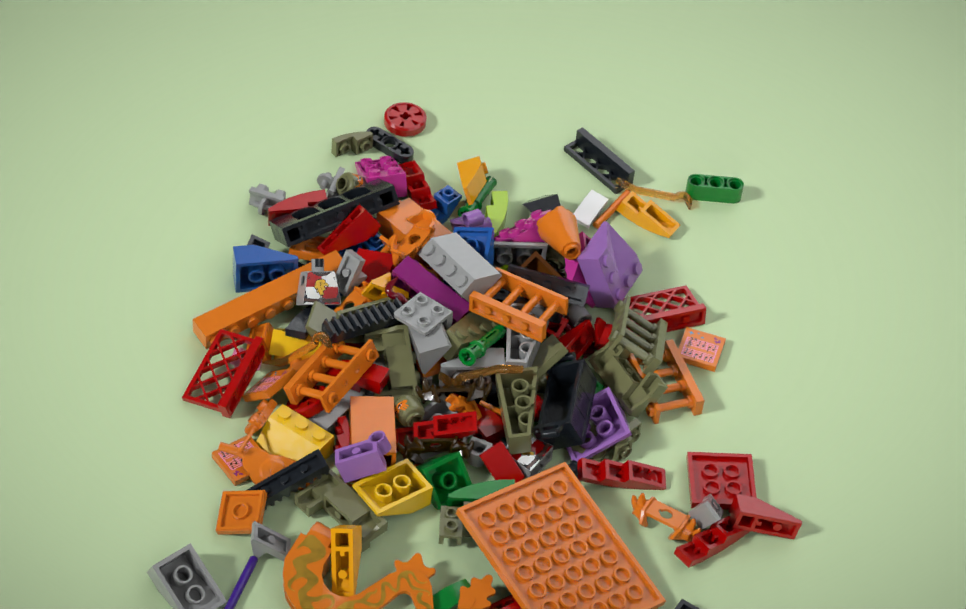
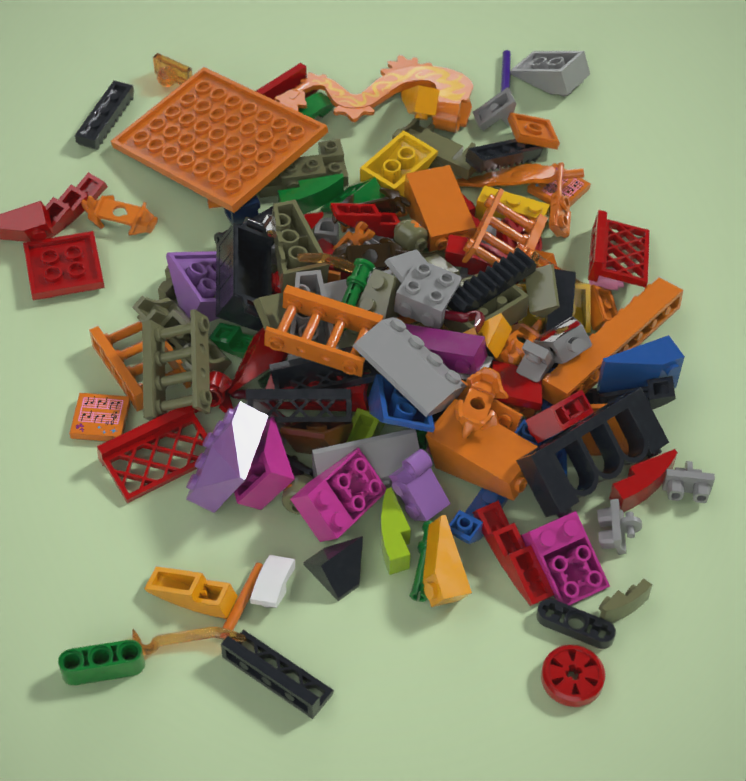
camera: 170 degrees right, 5 degrees up
(269, 385) = (567, 245): orange tile -> none
(348, 181) = (594, 513): olive head -> none
(363, 457) = (437, 153): medium lavender hinge -> none
(561, 232) = (295, 449): orange cone -> none
(621, 475) = (179, 240): red slope -> none
(706, 512) = (72, 204): light grey slope -> none

